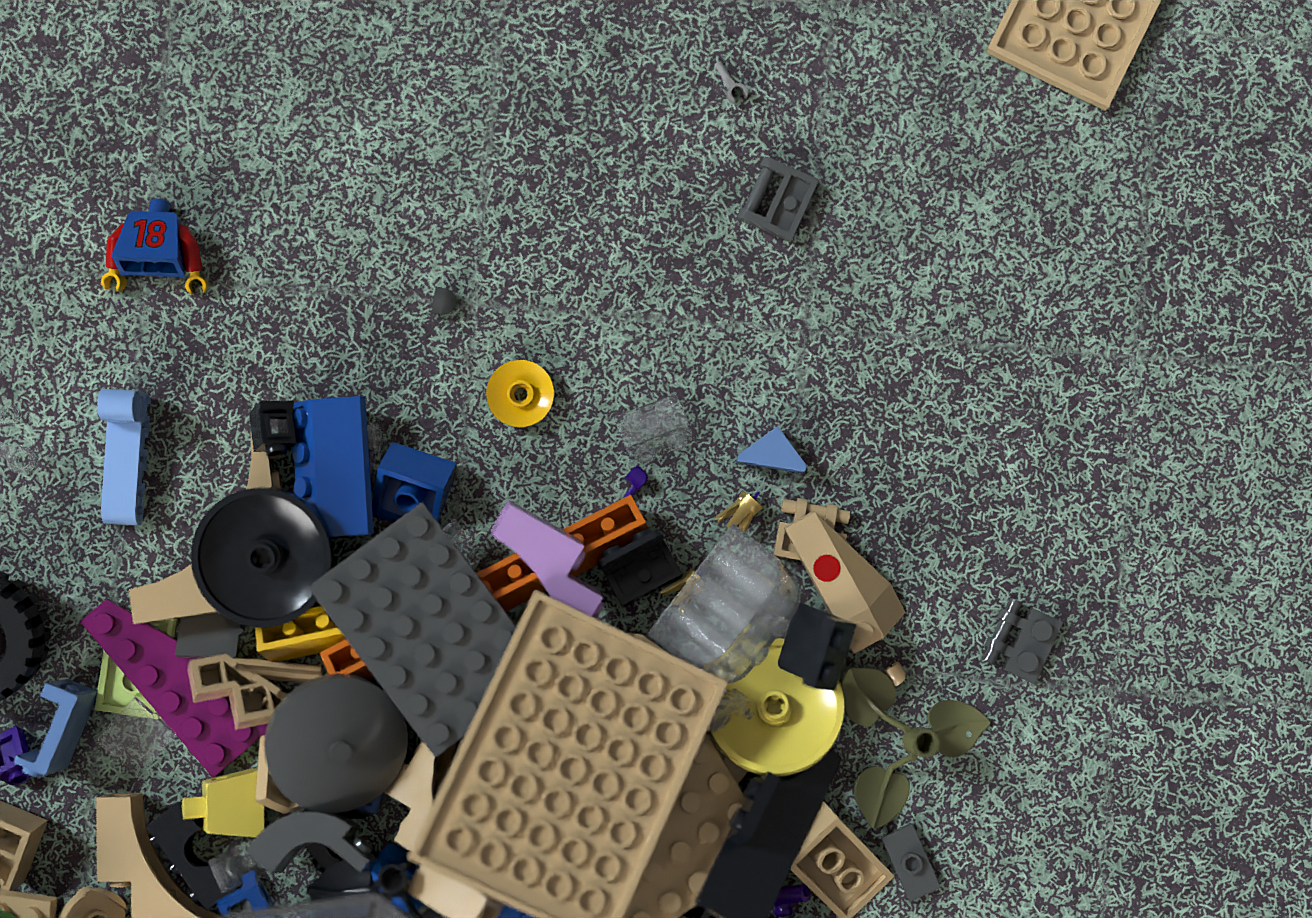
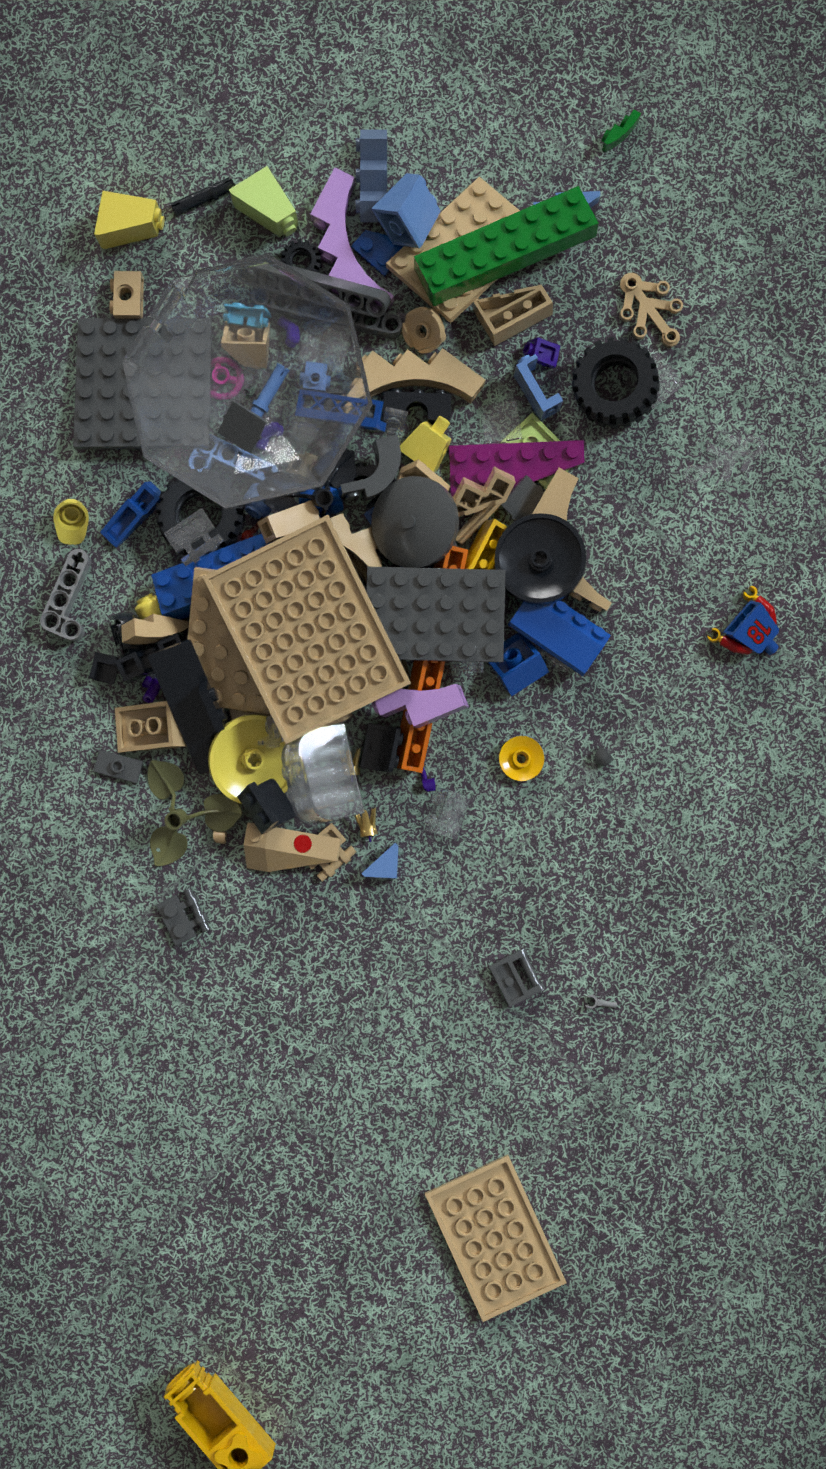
camera: 130 degrees right, 0 degrees up
(124, 454) = (652, 528): light blue beam -> none
(272, 427) = (604, 616): black window -> none

